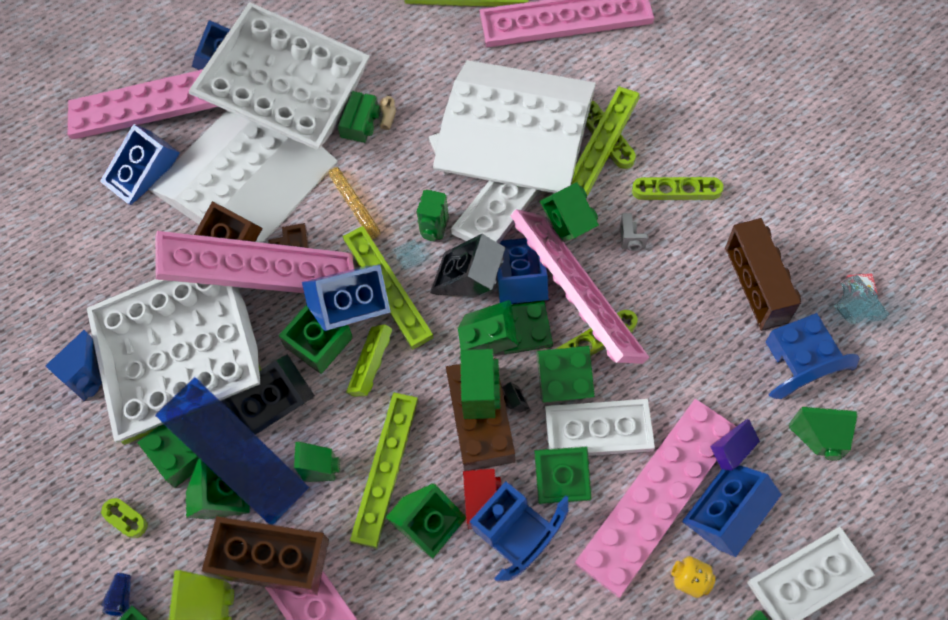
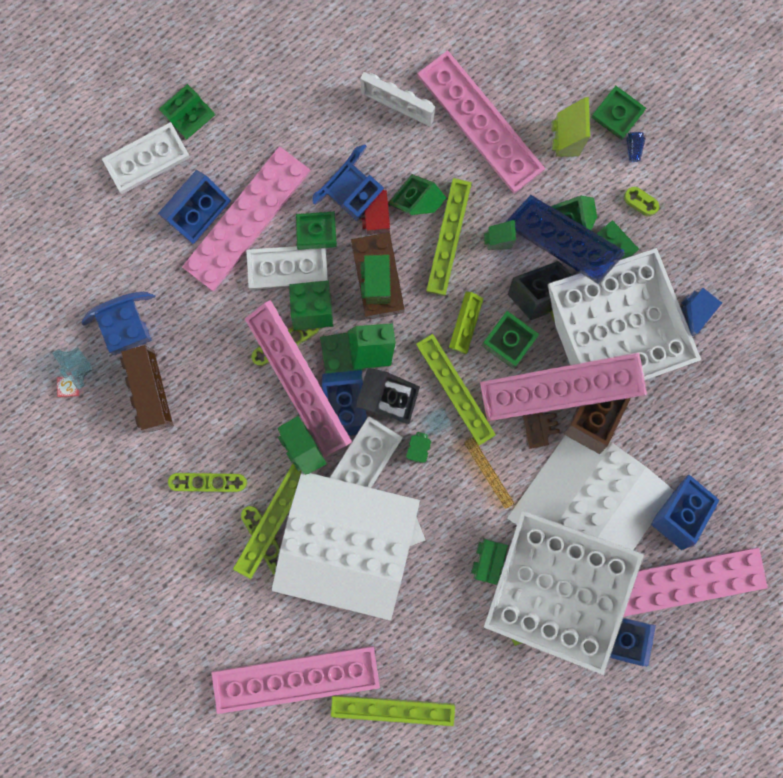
camera: 175 degrees right, 20 degrees up
(266, 555) = (530, 163): reddish brown brick -> none
(347, 296) = (486, 367): blue slope -> none
(388, 112) = (463, 569): tan arm -> none
(514, 397) = (350, 290): black plate -> none
(629, 237) = (253, 437): light grey bracket -> none
(693, 577) = (227, 157): yellow head -> none
(735, 445) = (185, 251): dark purple slope -> none
(825, 430) = (117, 258): green slope -> none

